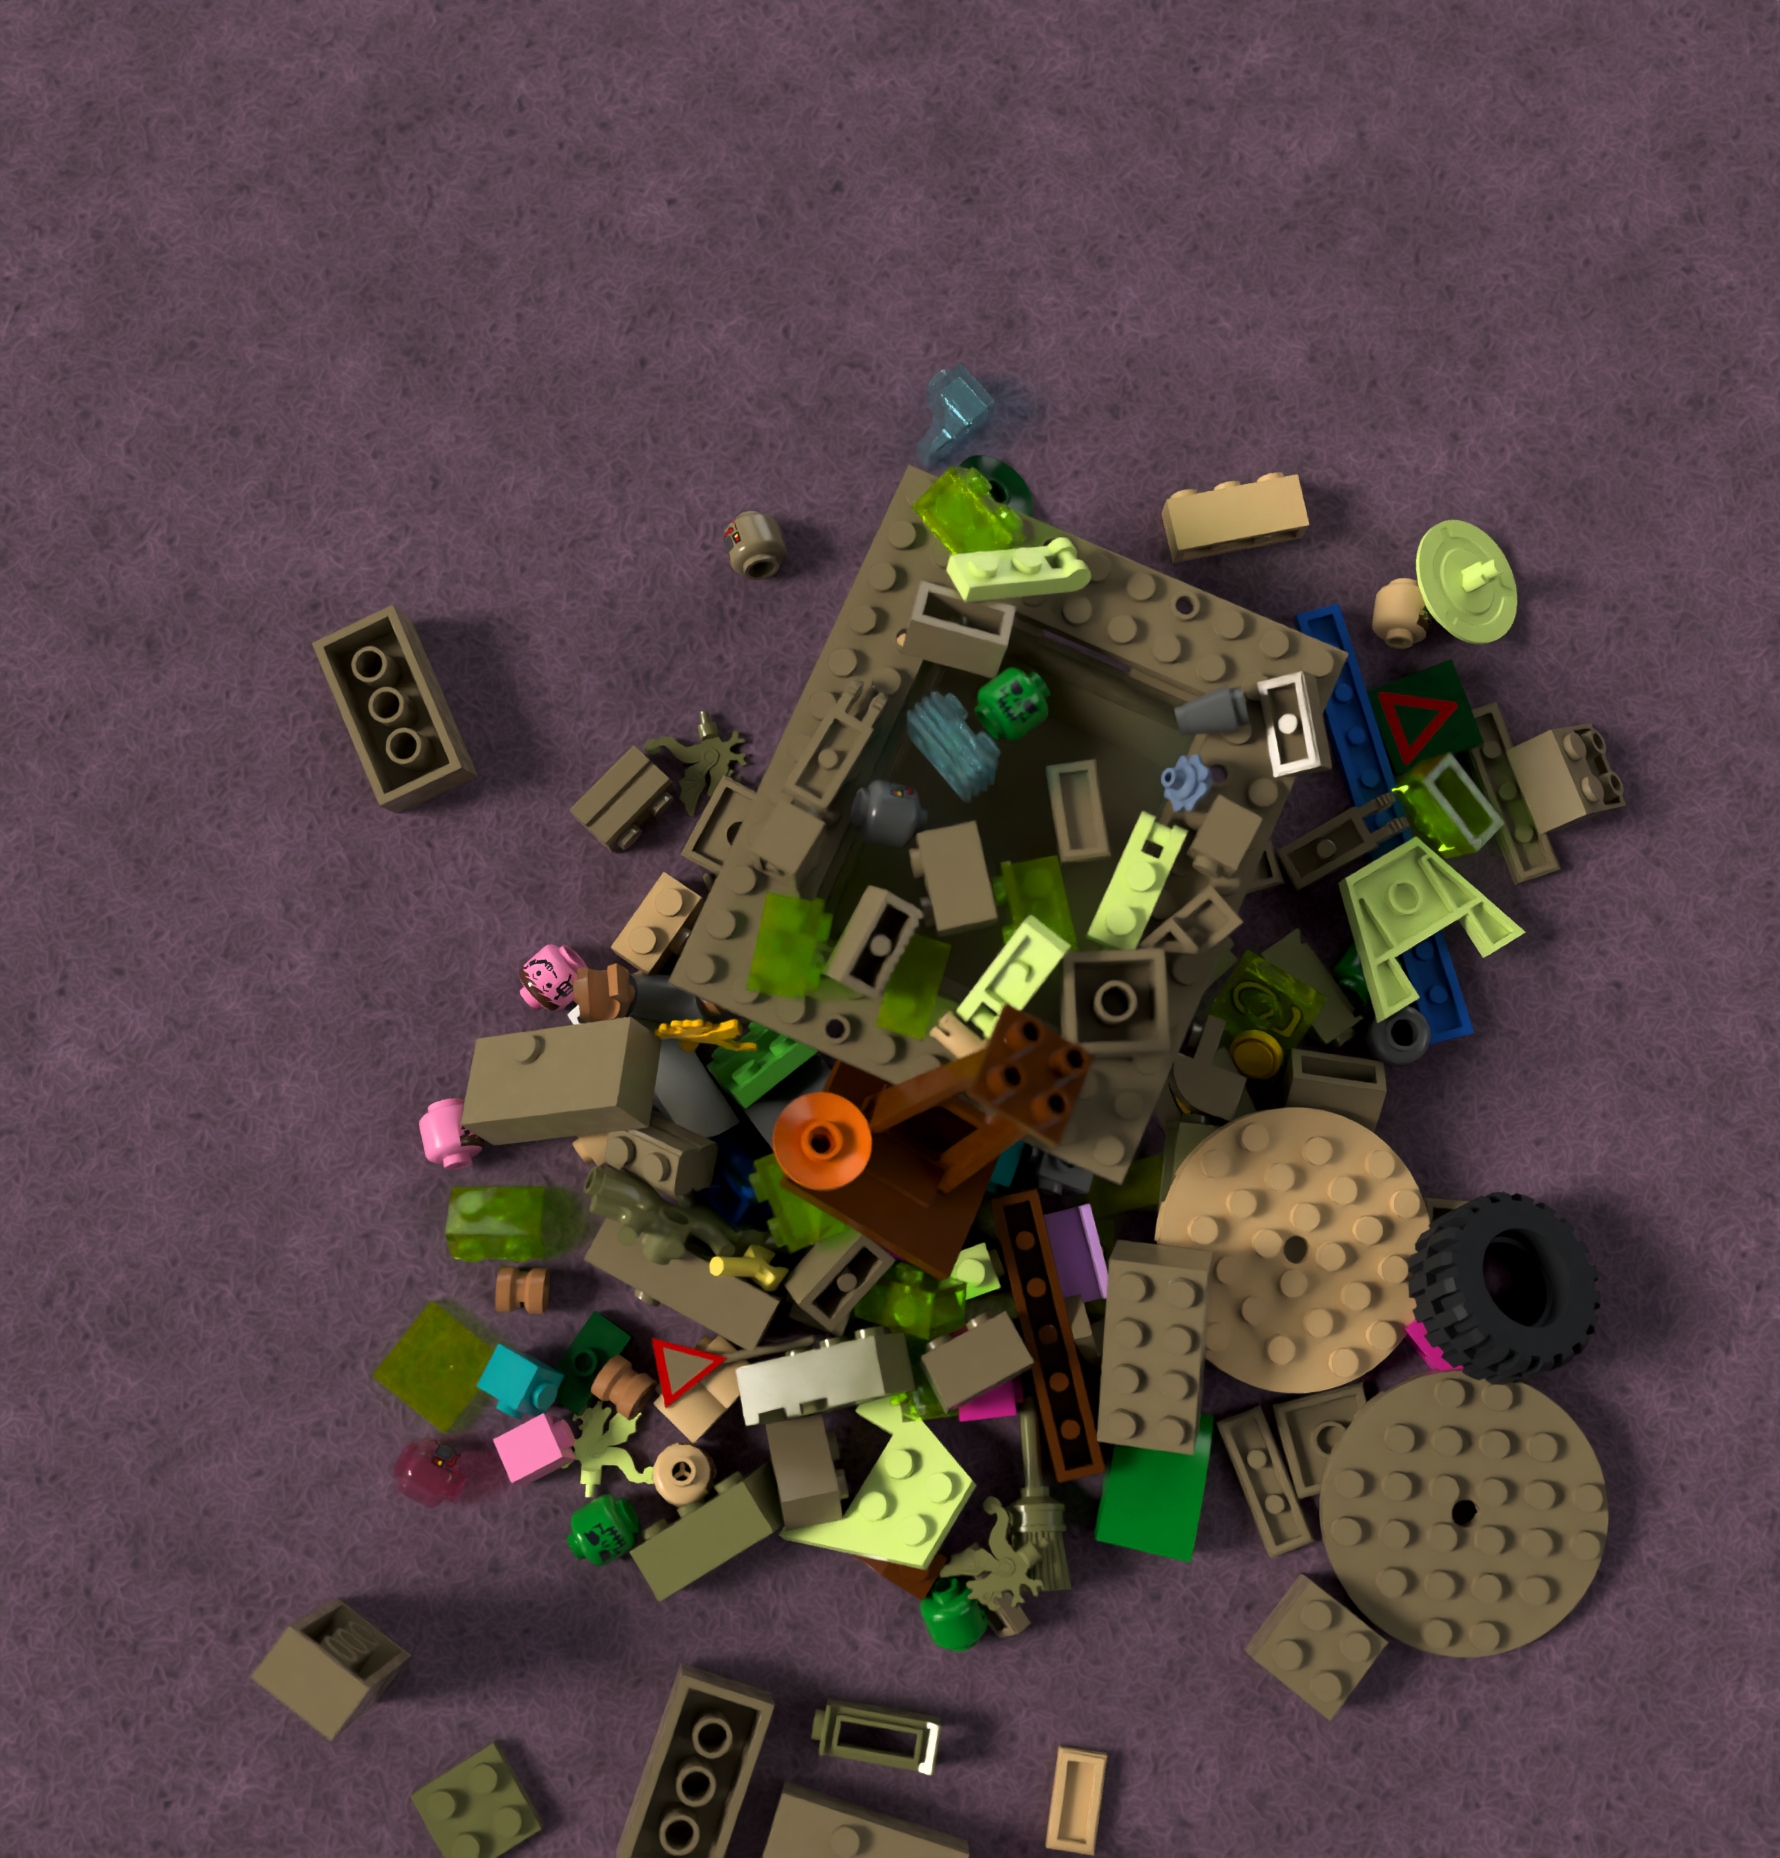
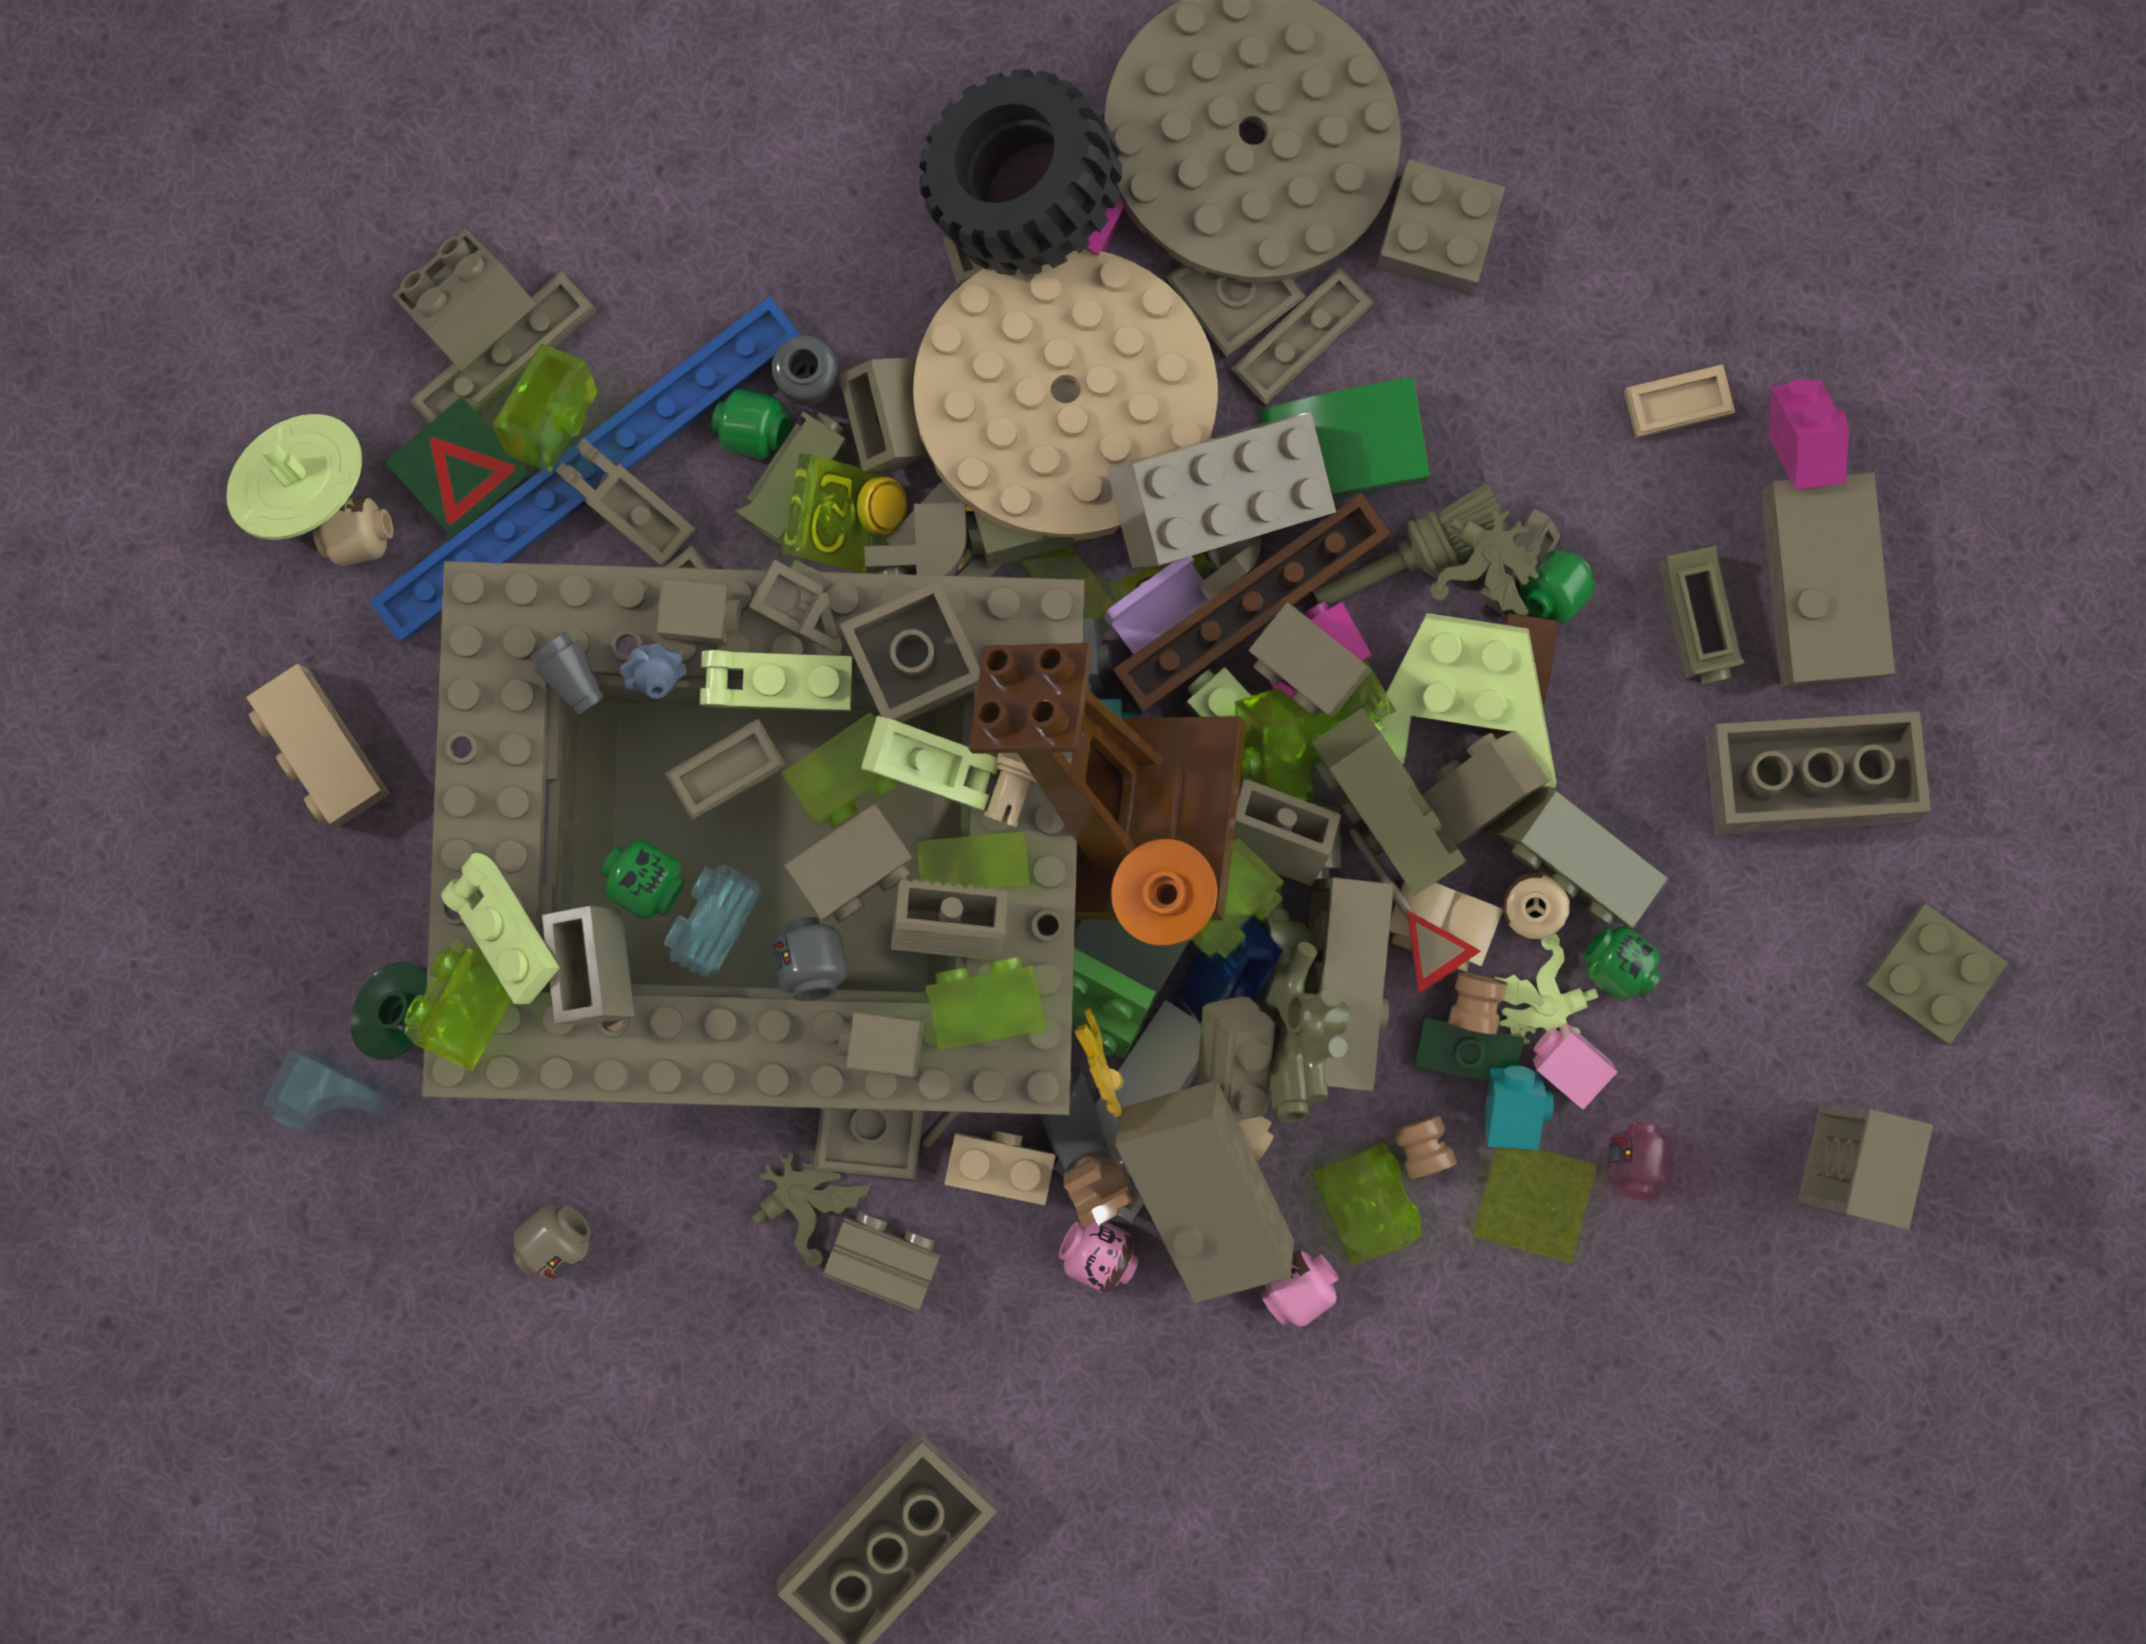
camera: 115 degrees left, 5 degrees up
(752, 1264) = (1307, 920): light yellow bar -> none
(834, 750) = (765, 1043): dark tan hinge -> none
(1294, 725) = (545, 586): dark tan slope -> none
(1403, 903) = (667, 414): yellowish green wing -> none

